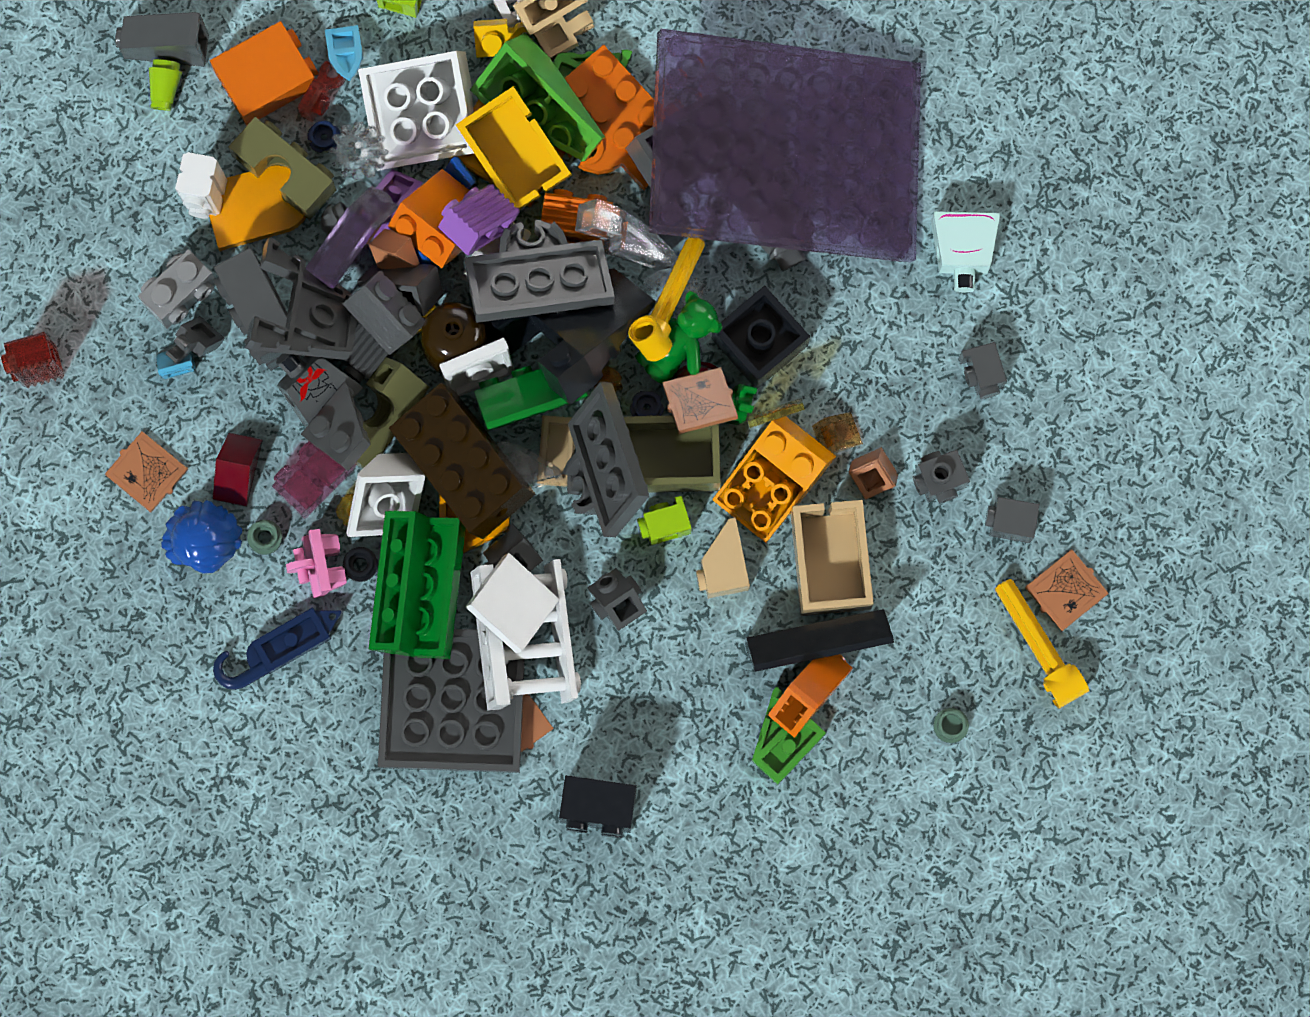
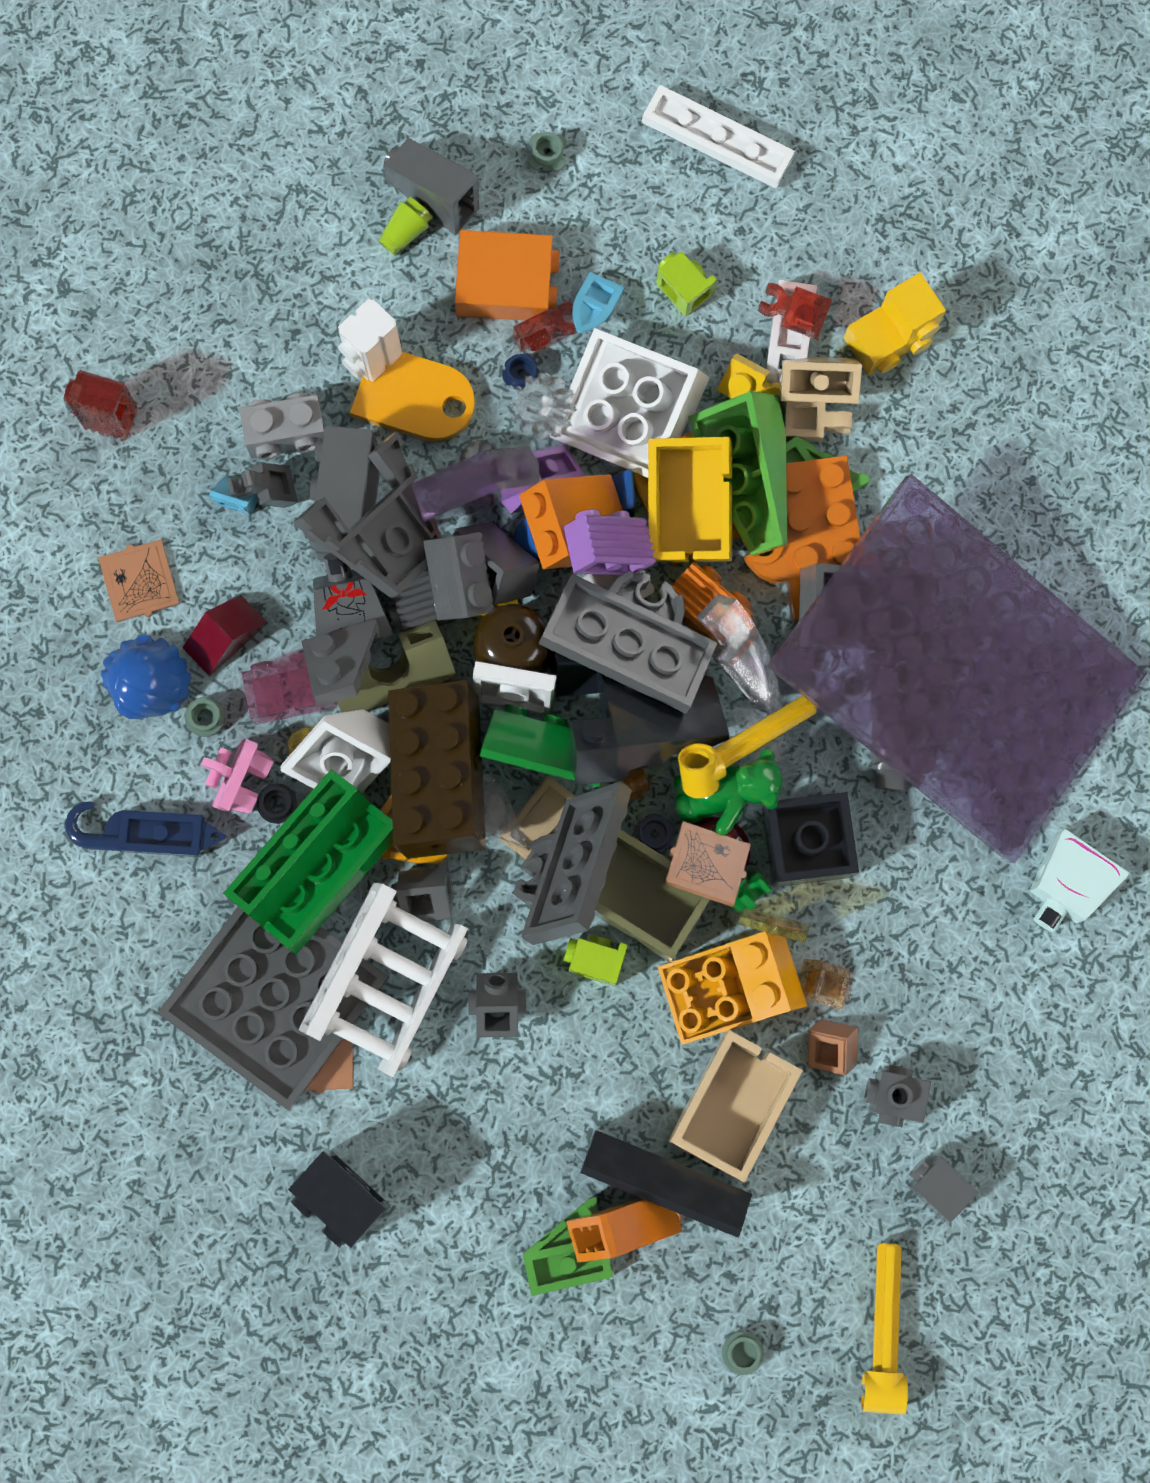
camera: 30 degrees right, 0 degrees up
(262, 147) = (452, 343): olive arch -> none
(393, 251) = (508, 522): nougat slope -> none
(512, 603) = (389, 942): white tile -> none
(724, 564) = (625, 1040): tan slope -> none
(983, 370) = (1010, 1018): dark grey brick -> none
(1066, 590) = (949, 1294): nougat piece -> none

